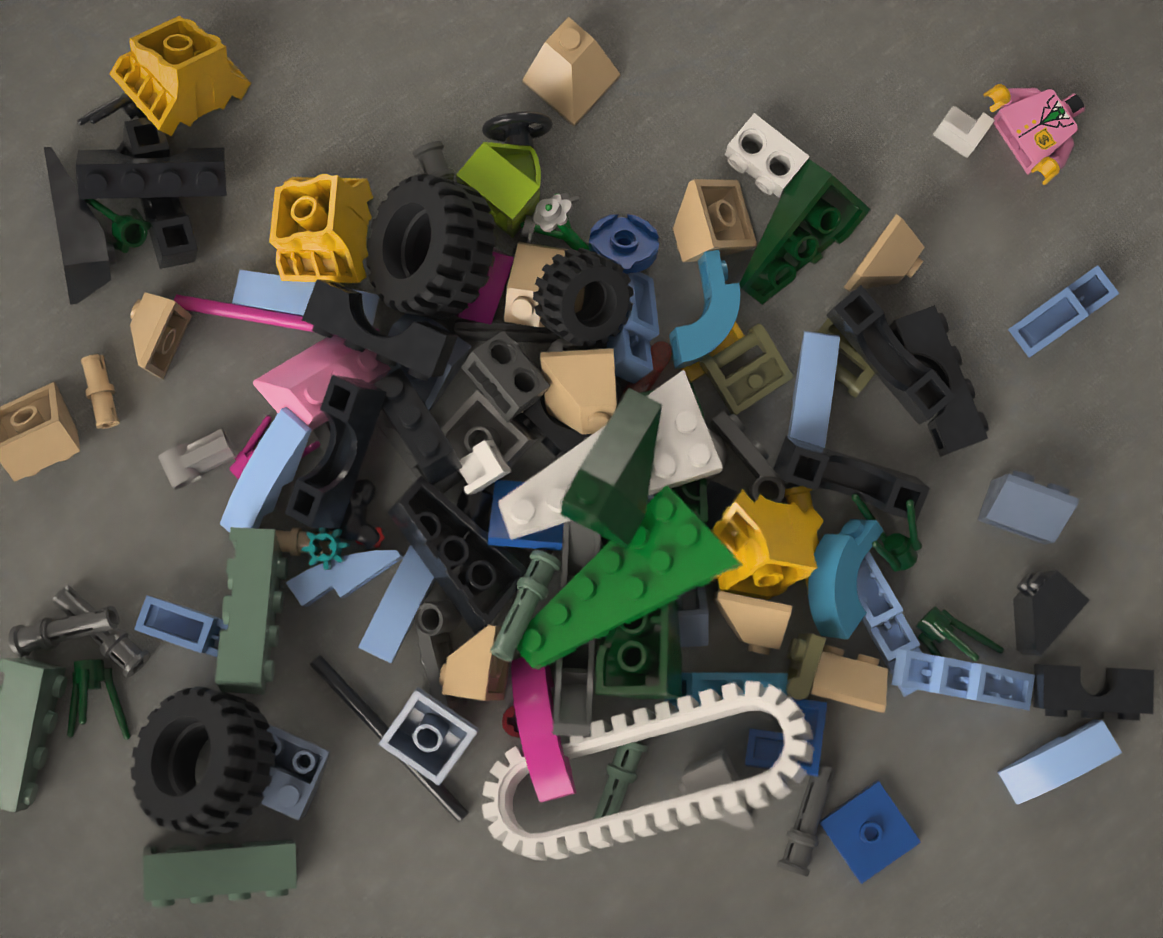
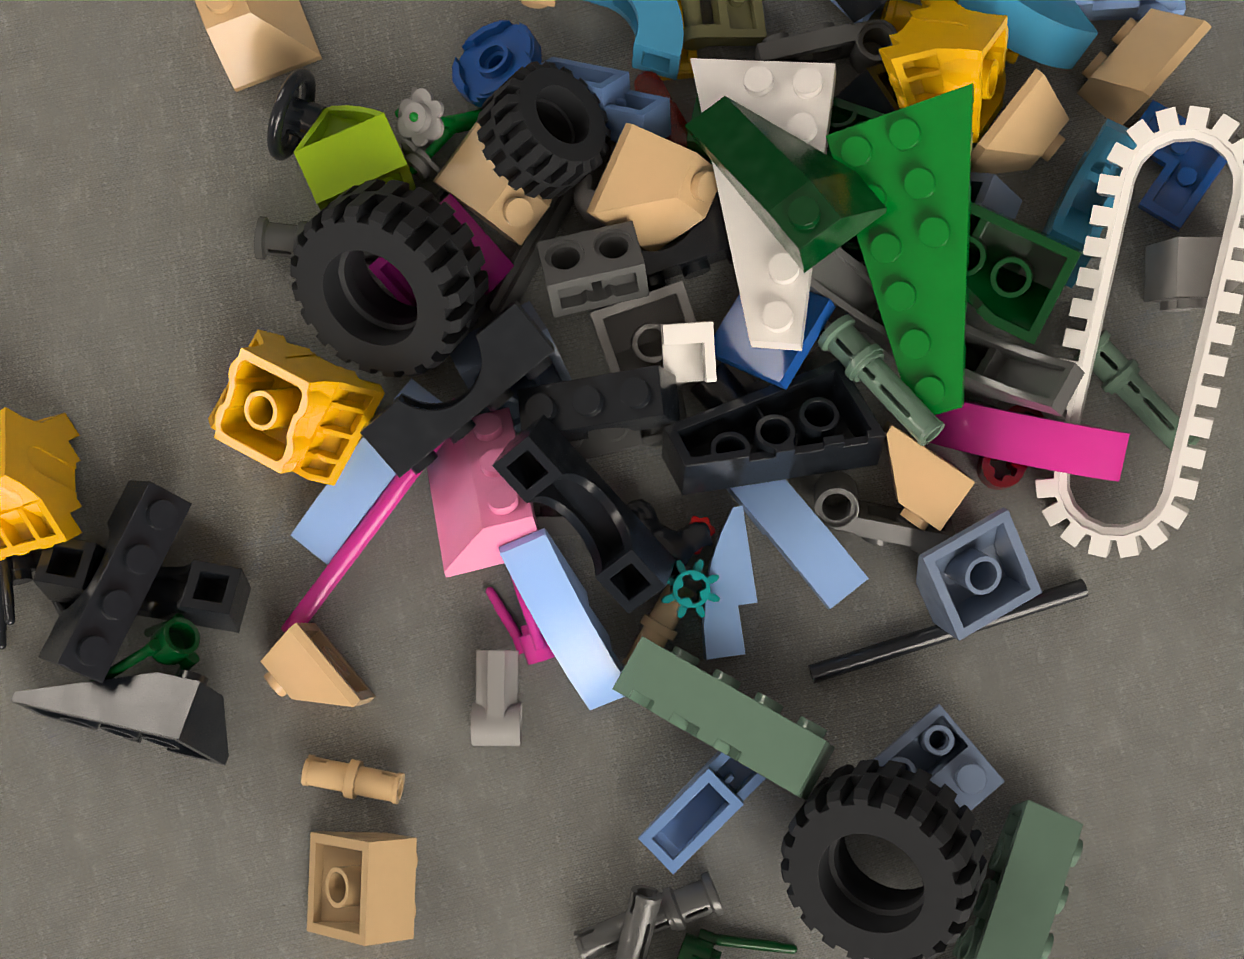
camera: 65 degrees left, 0 degrees up
(804, 660) = (1092, 88): olive plate -> none

